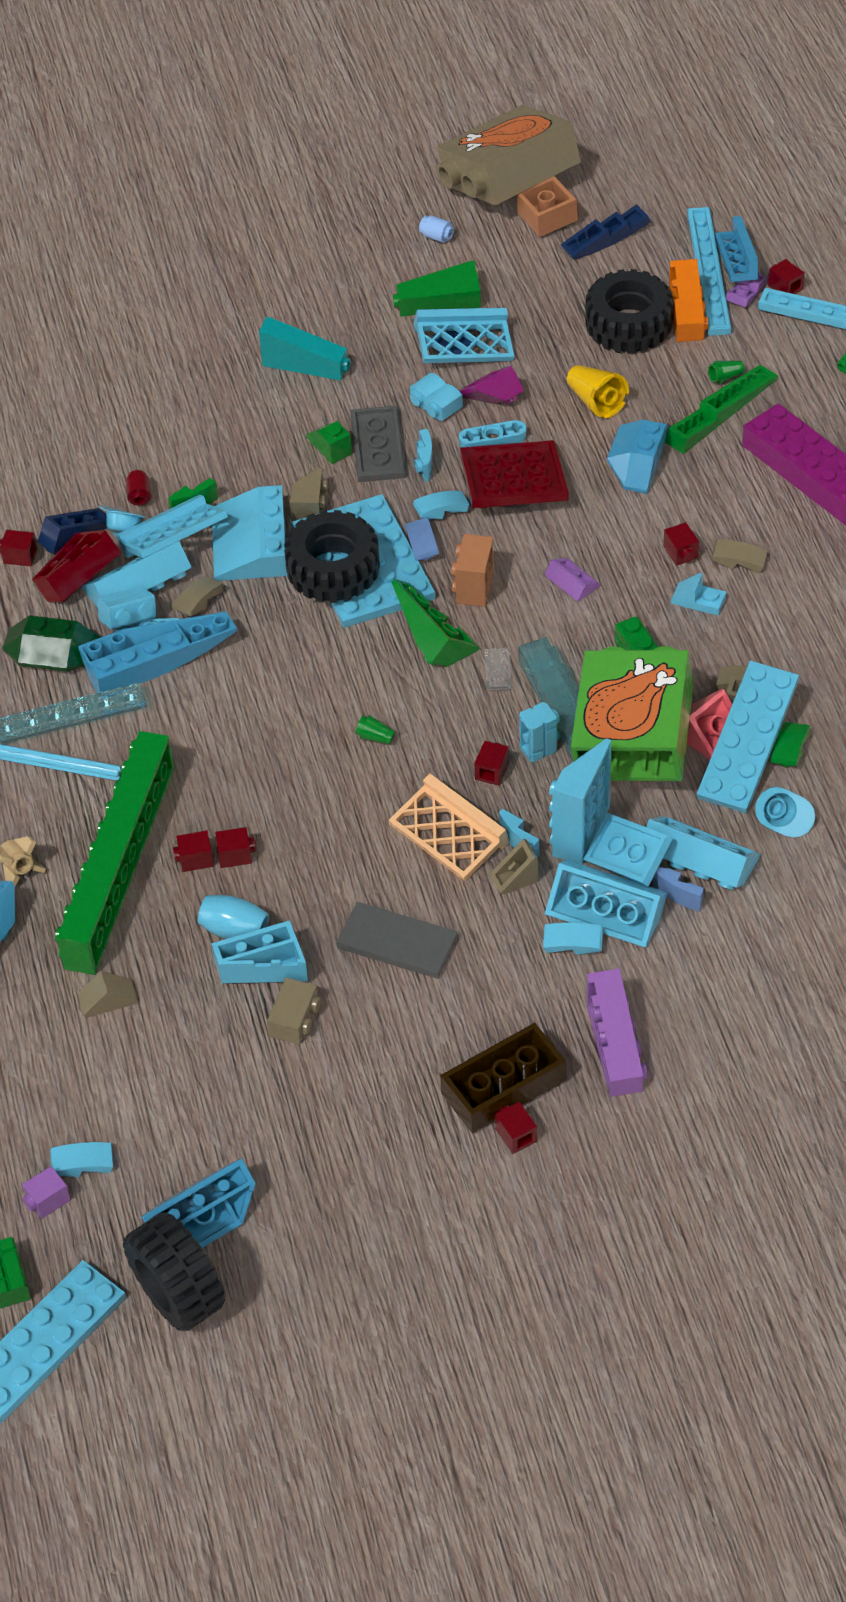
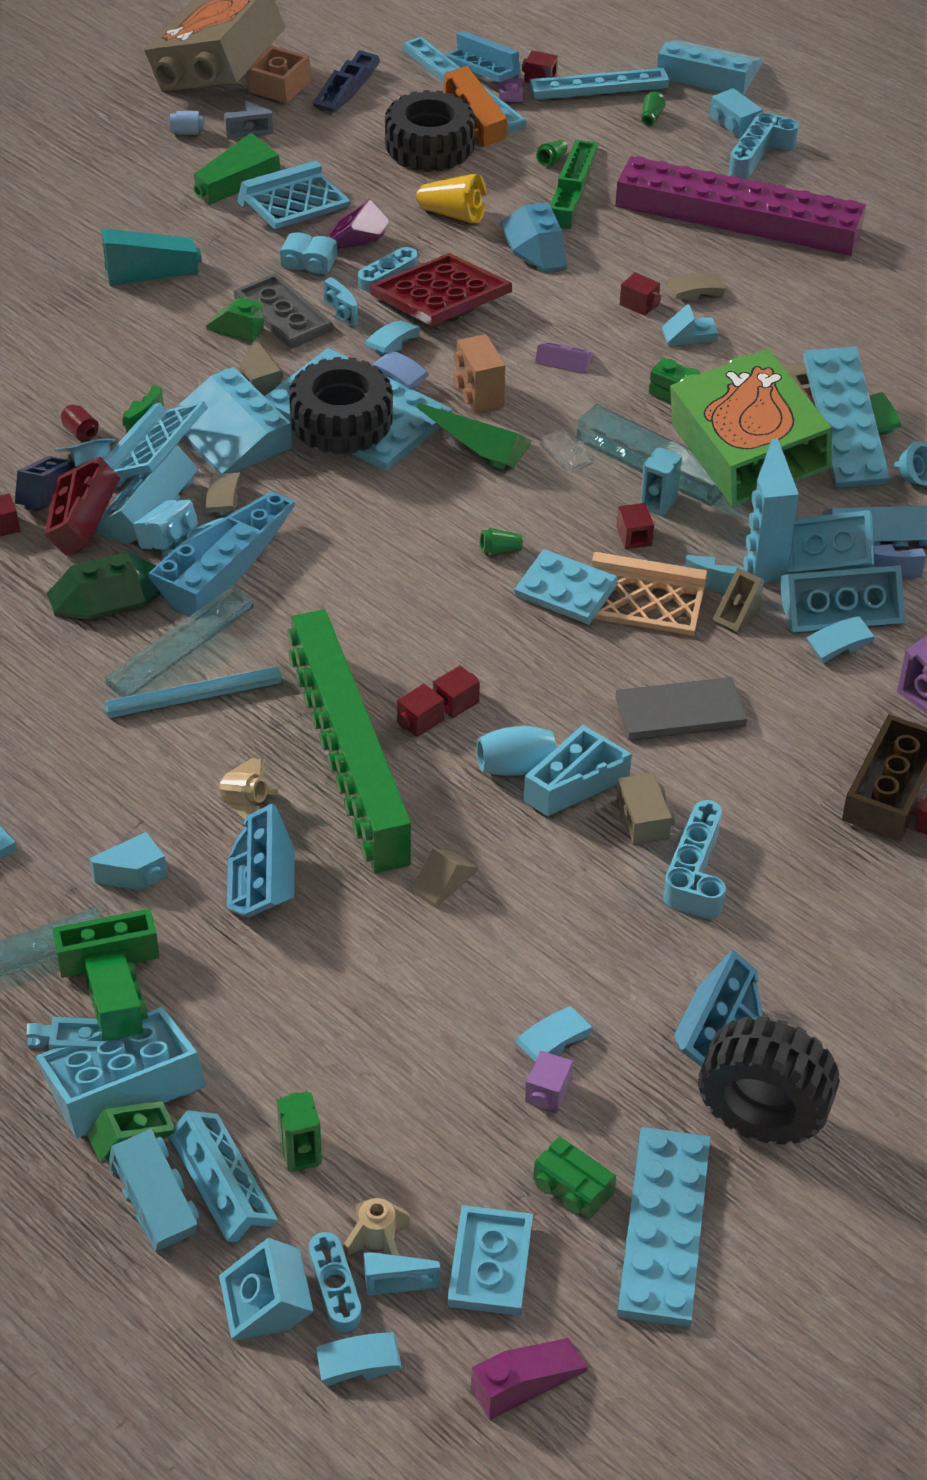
camera: 35 degrees left, 5 degrees down
(323, 1047) = (686, 883): none -> medium azure beam
(391, 793) = (566, 586): none -> medium azure plate
(489, 247) = (252, 120): none -> sand blue slope

